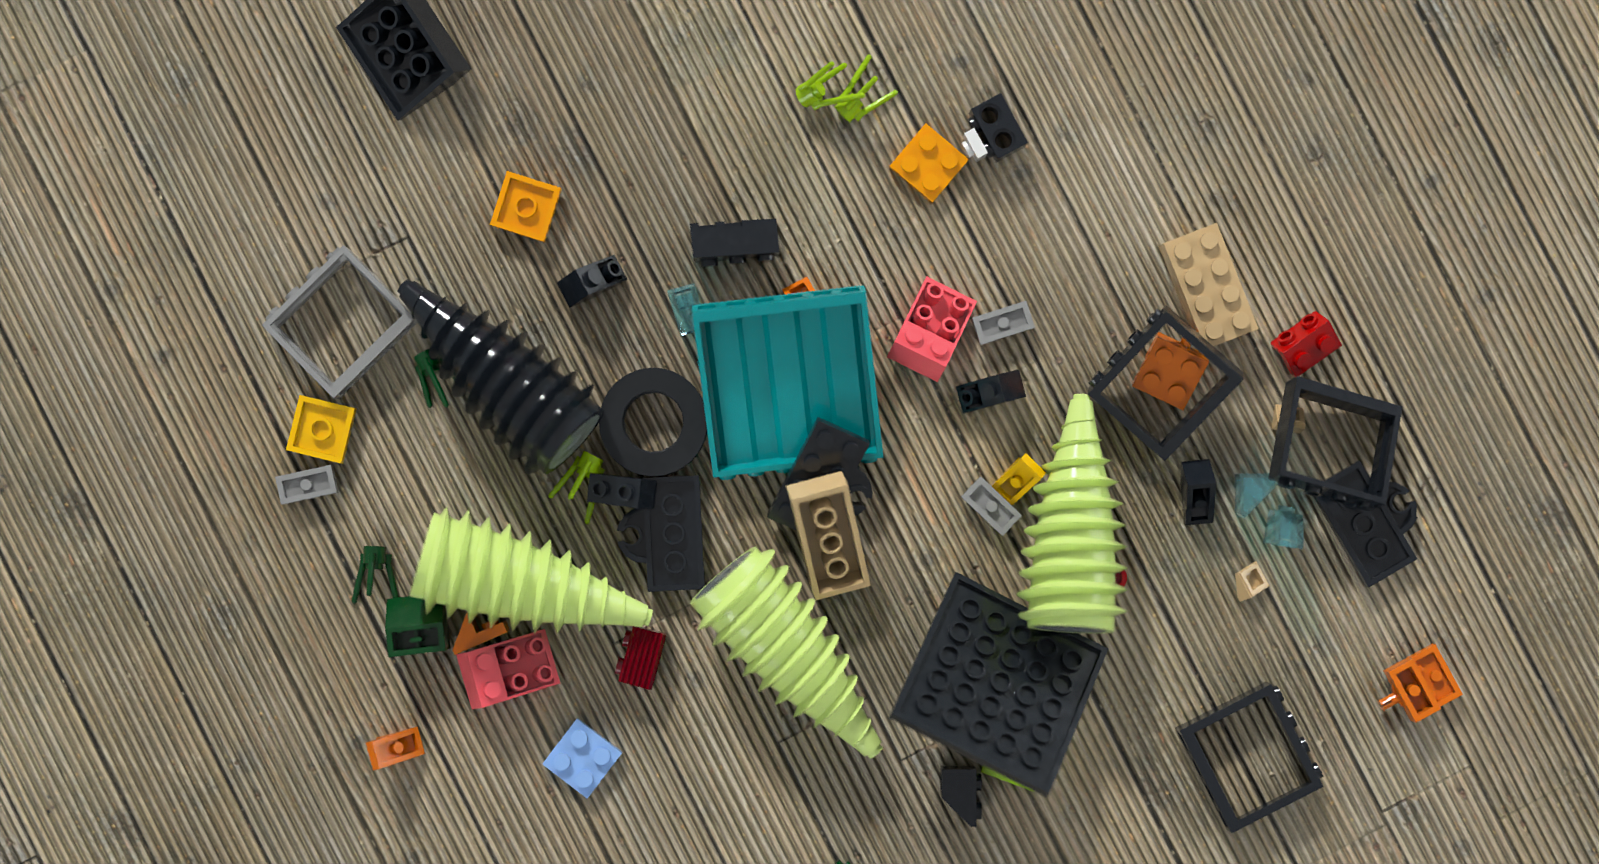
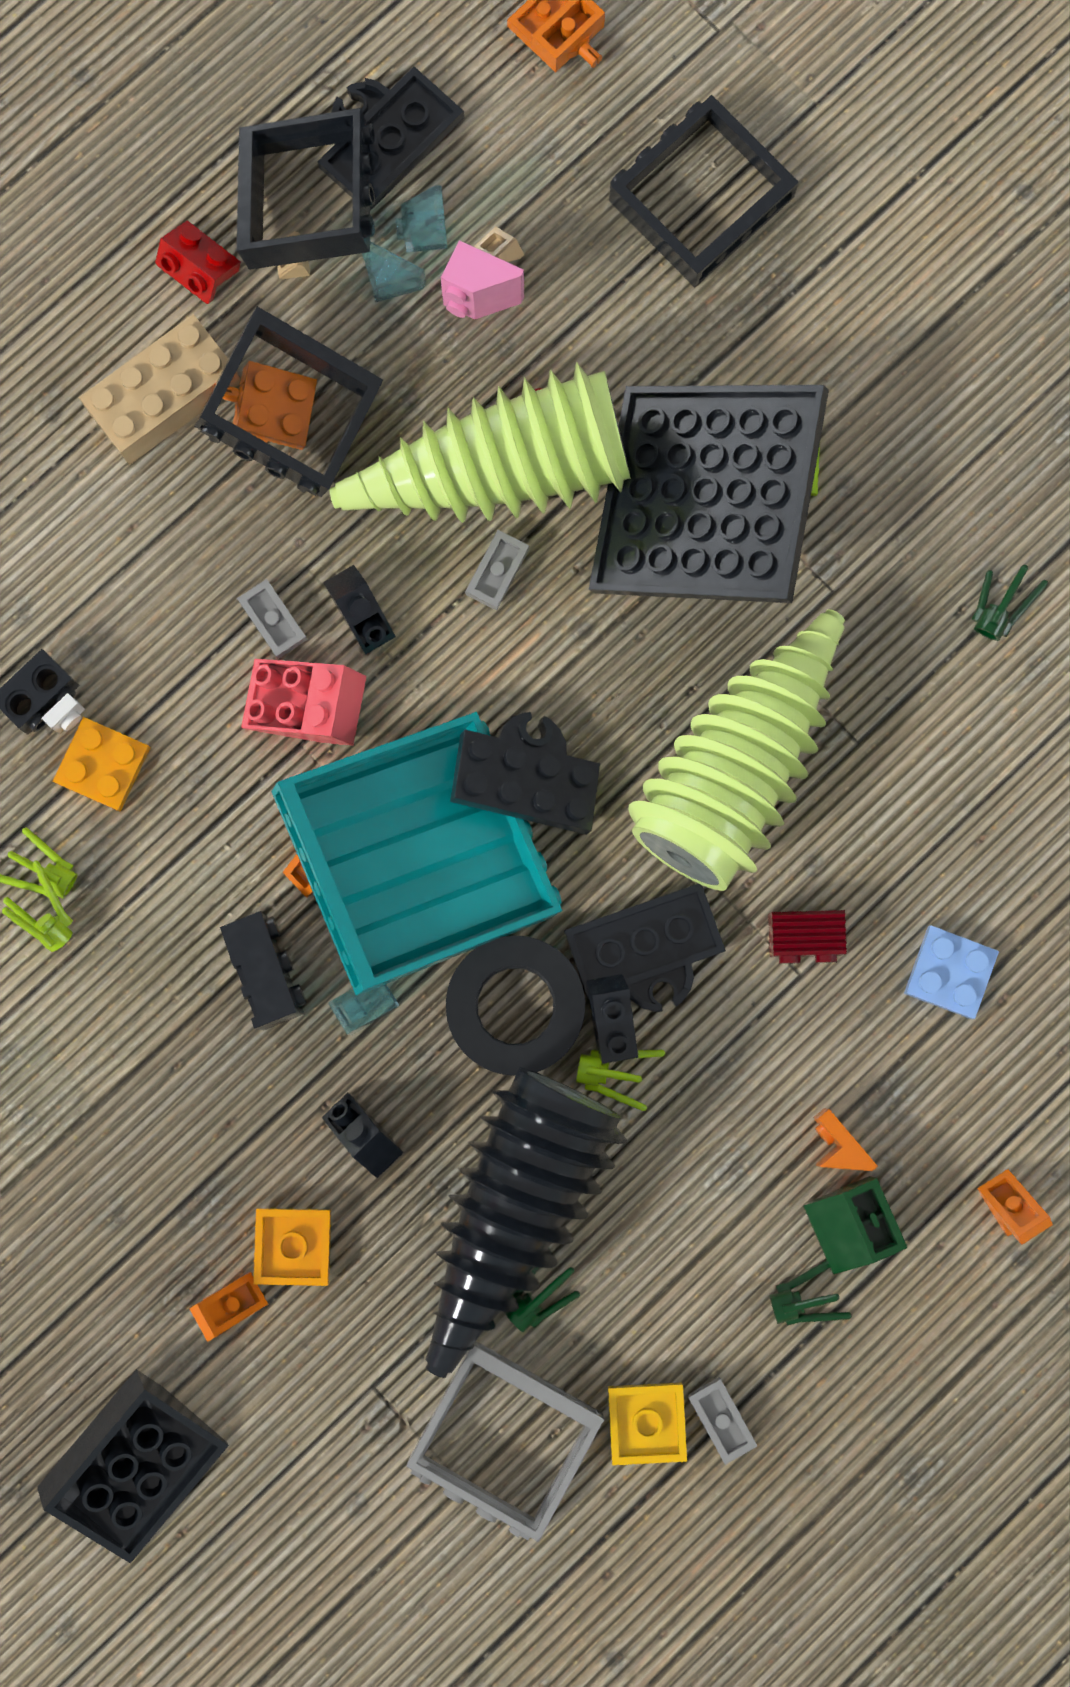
camera: 105 degrees left, 5 degrees down
(496, 148) = (228, 1306): none -> orange slope
(508, 669) = (873, 1095): coral slope -> none
(514, 580) = (762, 1119): yellowish green cone -> none
(828, 535) = (591, 747): tan brick -> none
(959, 790) = (846, 509): black slope -> none
(1018, 479) = (454, 545): yellow slope -> none
(1198, 491) = (408, 334): black slope -> none
(1220, 557) = (480, 283): none -> bright pink slope

